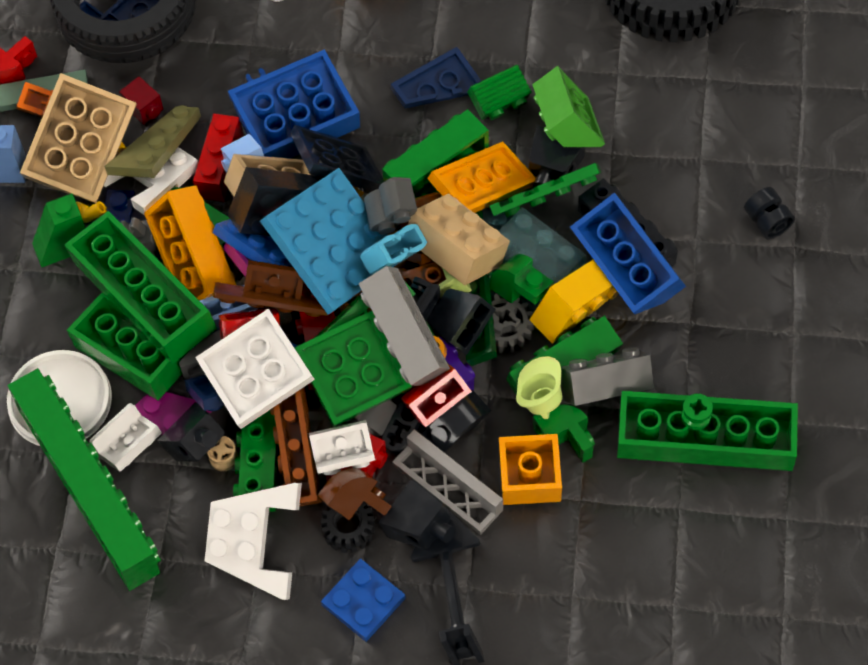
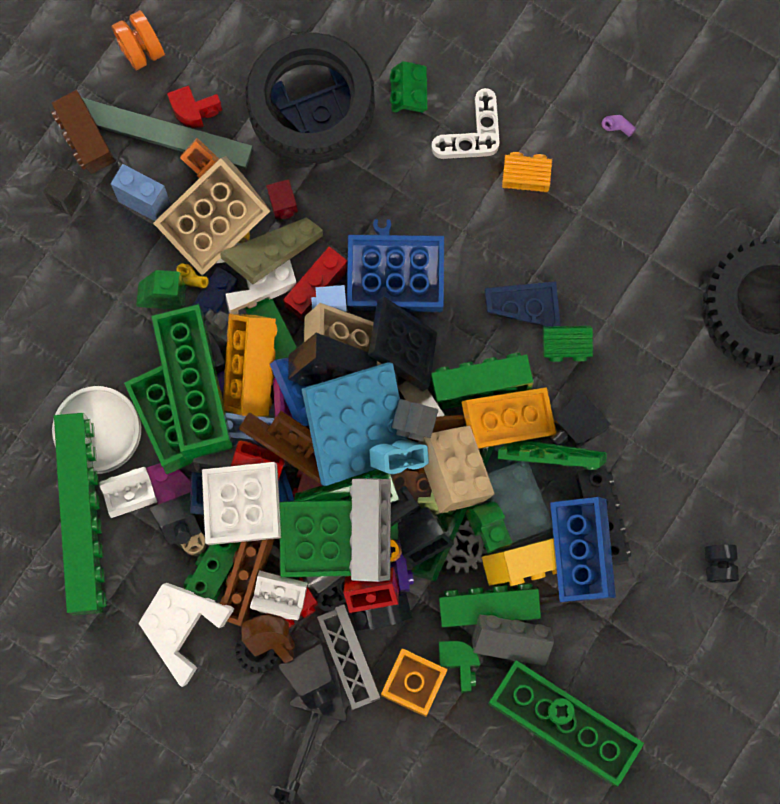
camera: 25 degrees right, 15 degrees up
(363, 600) = (238, 716): blue plate -> none
(540, 386) = (454, 624): yellowish green piece -> none
(566, 111) = (609, 392): bright green slope -> none

